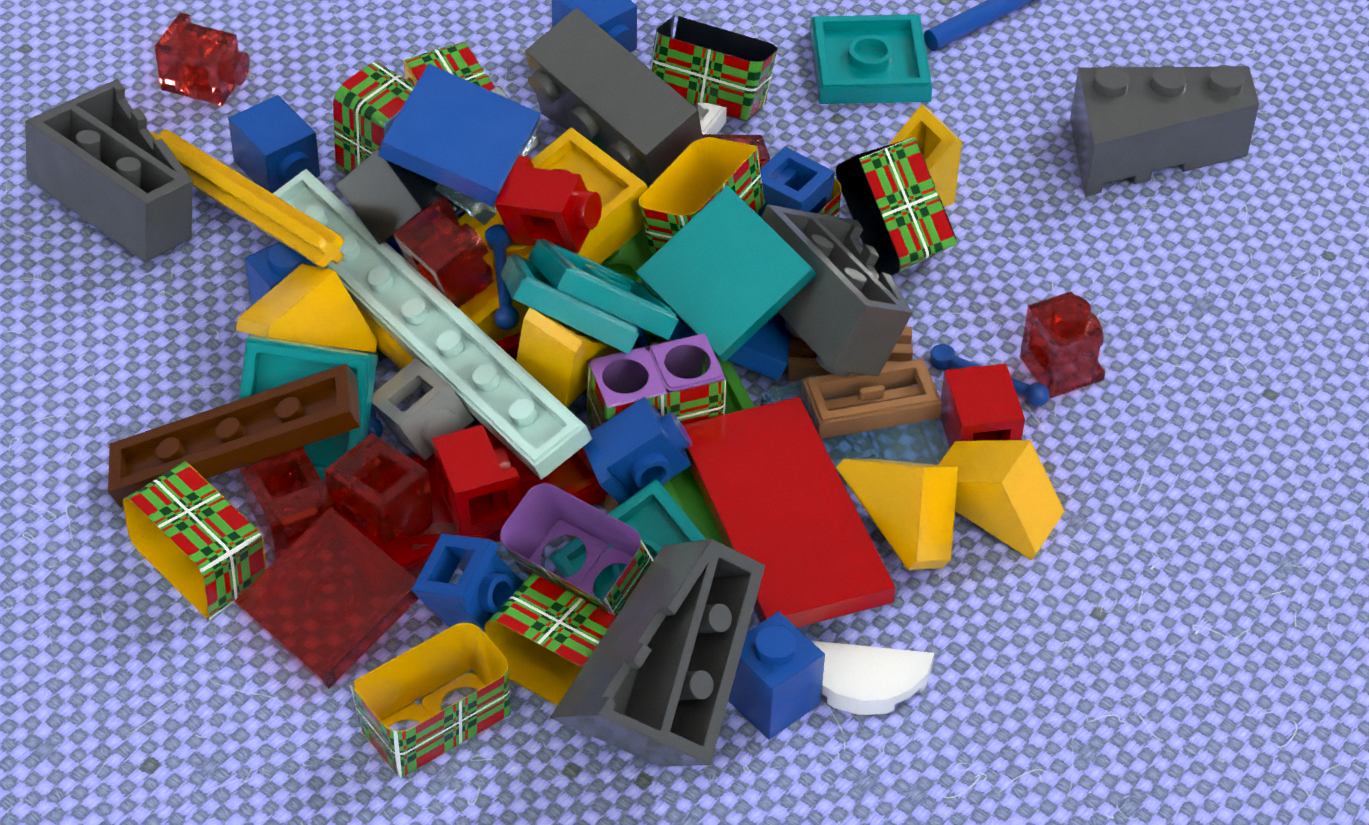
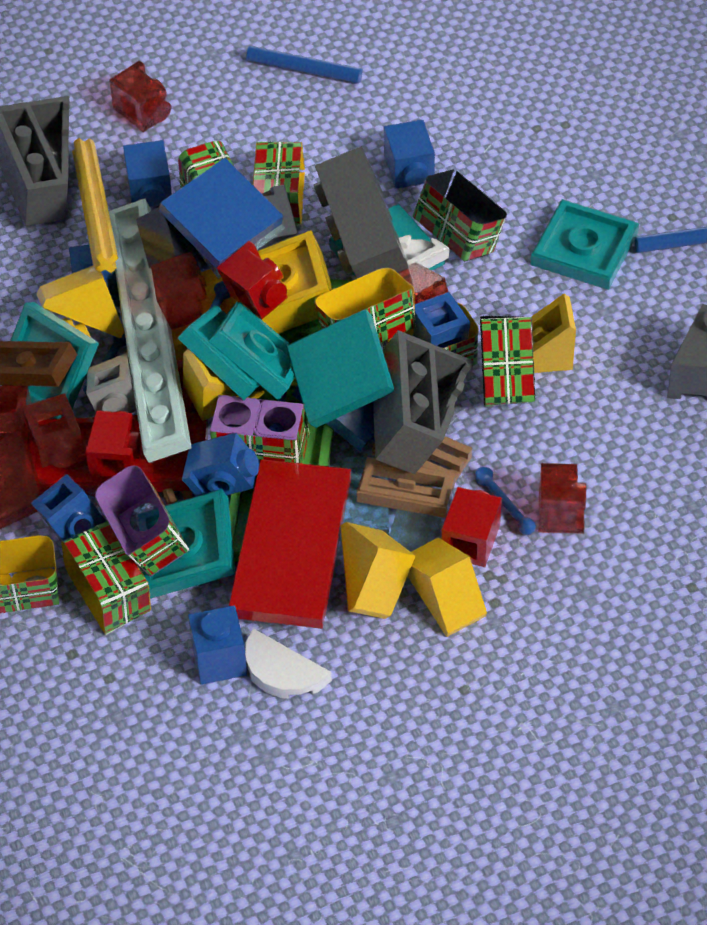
camera: 30 degrees right, 5 degrees up
(669, 657) = (145, 606): dark grey wedge -> none

